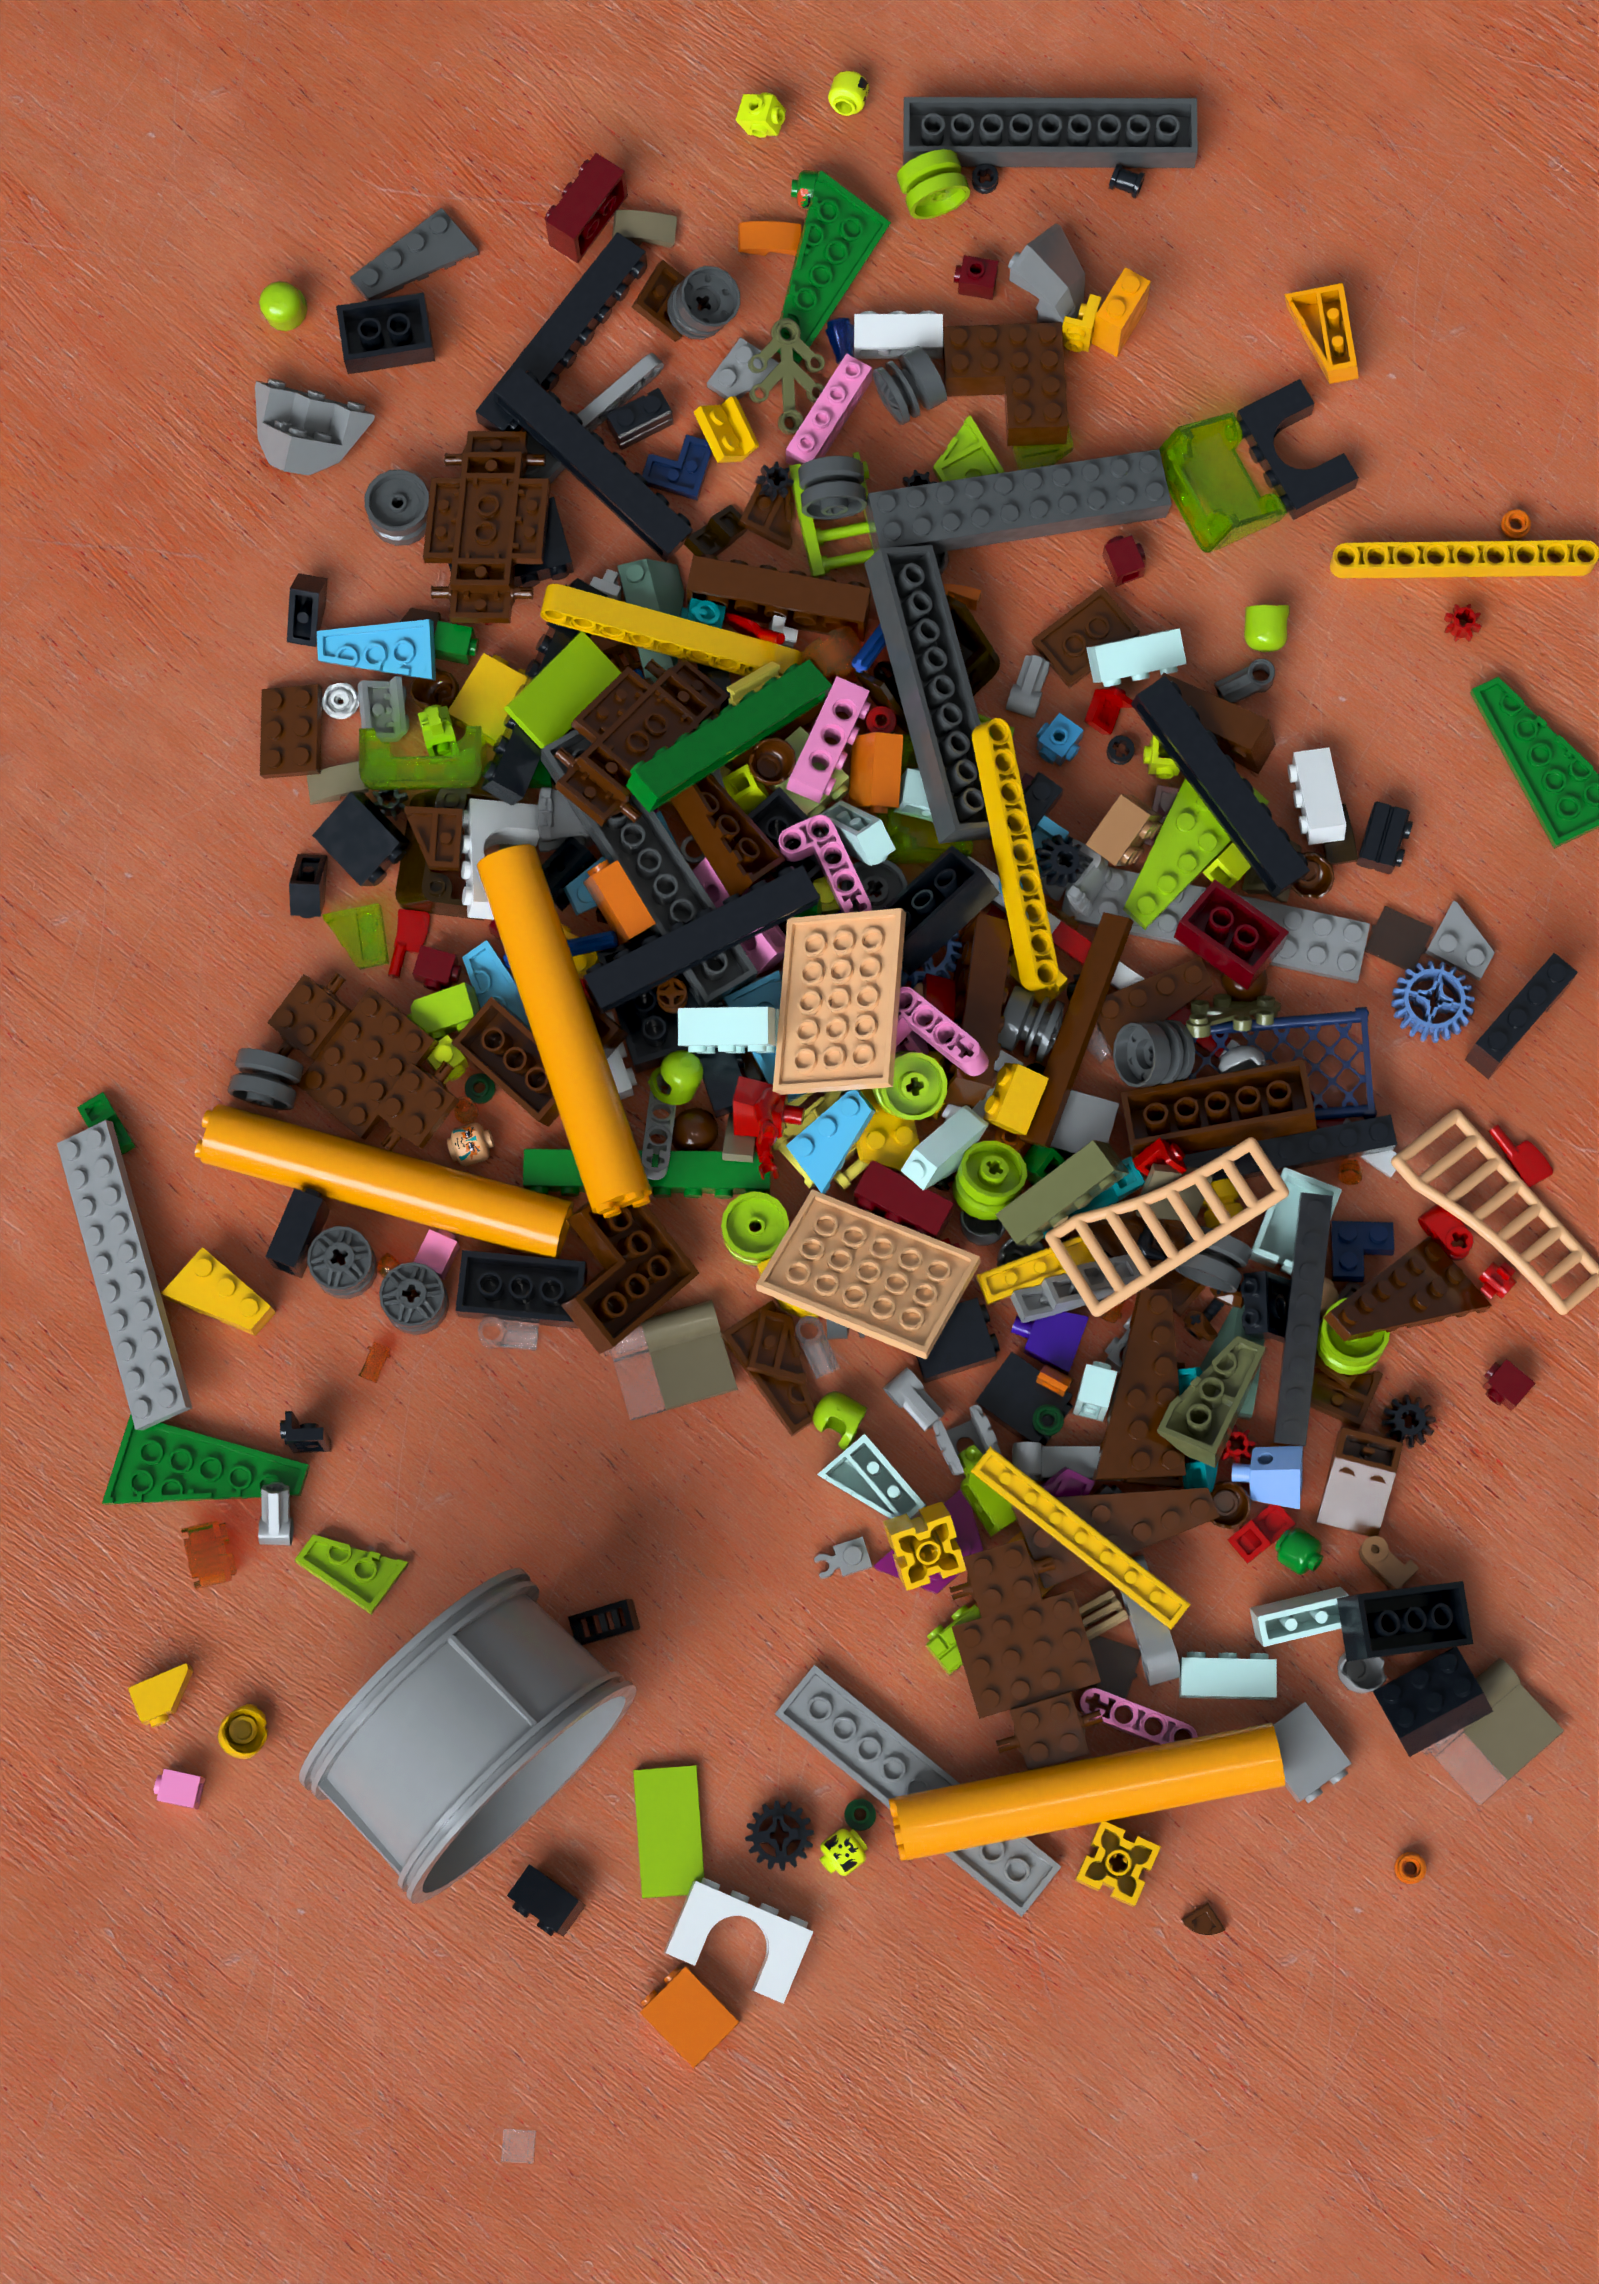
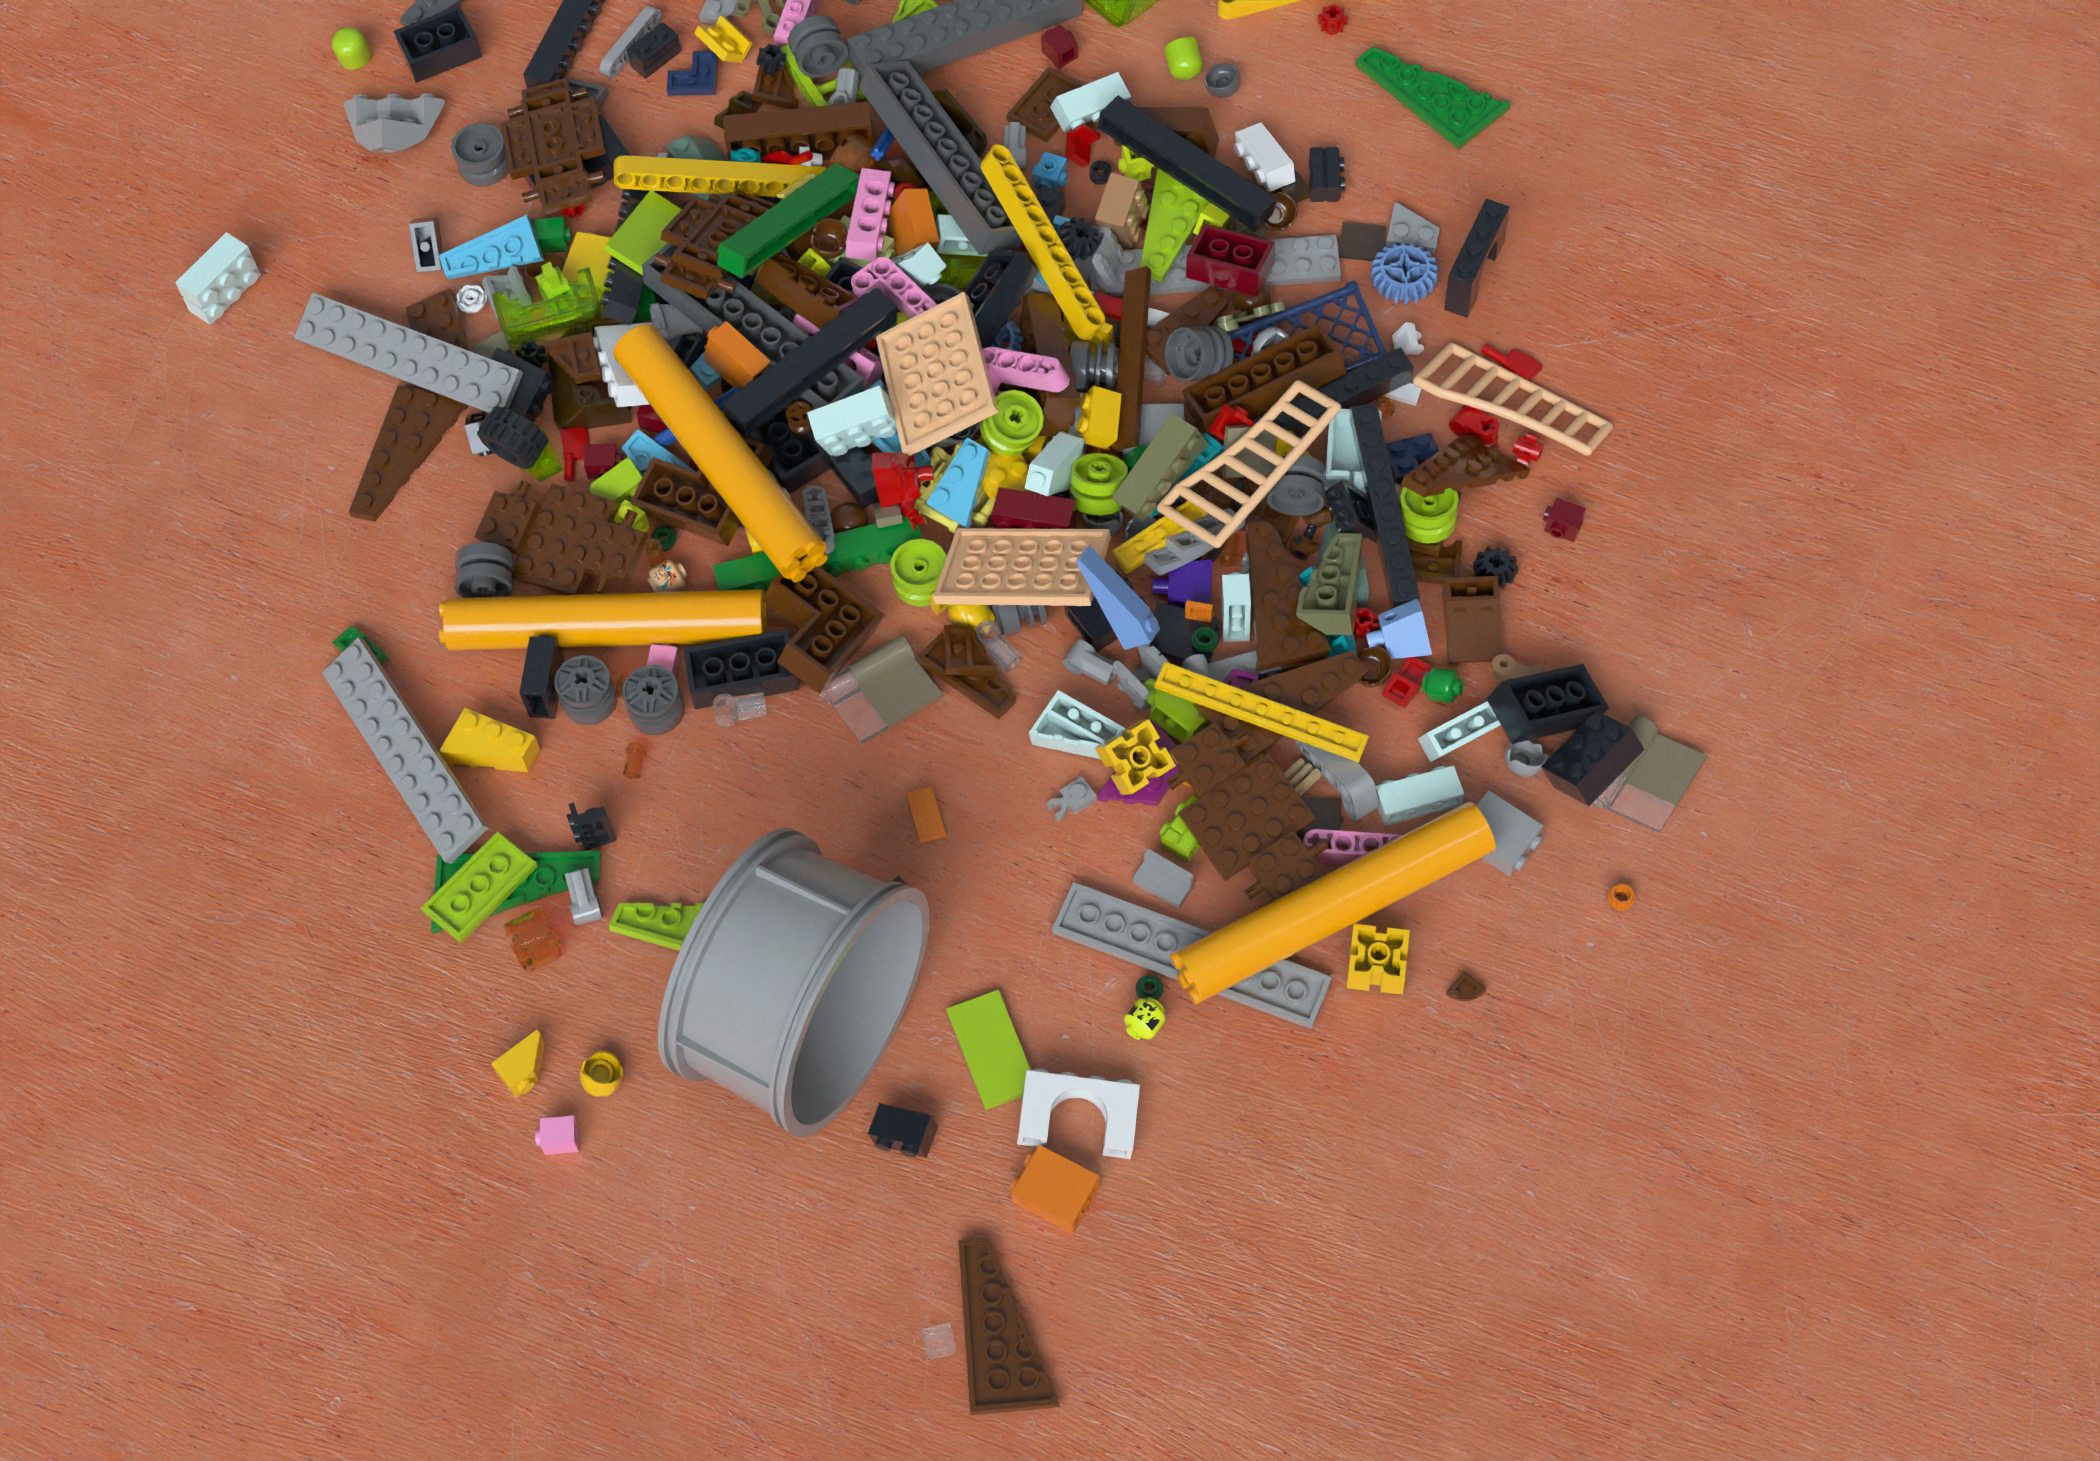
camera: 15 degrees left, 15 degrees down
(54, 590) = (218, 278): none -> light aqua piece
(166, 1469) = (479, 887): none -> lime tile
(223, 864) = (404, 442): none -> reddish brown wing
(248, 763) = (407, 354): none -> light grey plate
(339, 919) = (512, 437): none -> black tyre
(577, 2183) = (999, 1350): none -> reddish brown wing
(593, 463) = (625, 84): black brick -> none
(677, 1529) = (925, 814): none -> orange slope
(683, 1074) = (828, 473): lime helmet -> none
(765, 1836) = (1076, 1027): black gear -> none
(839, 1414) = (1032, 689): lime helmet -> none
(849, 556) = (845, 87): none -> light grey piece
(914, 1691) = (1164, 879): none -> light grey panel
(961, 1357) = (1121, 605): none -> medium blue wedge
(1243, 684) = (1182, 98): dark grey piece -> none
(1303, 669) = (1222, 80): none -> dark grey hair
(1404, 1093) = (1407, 339): none -> white tile

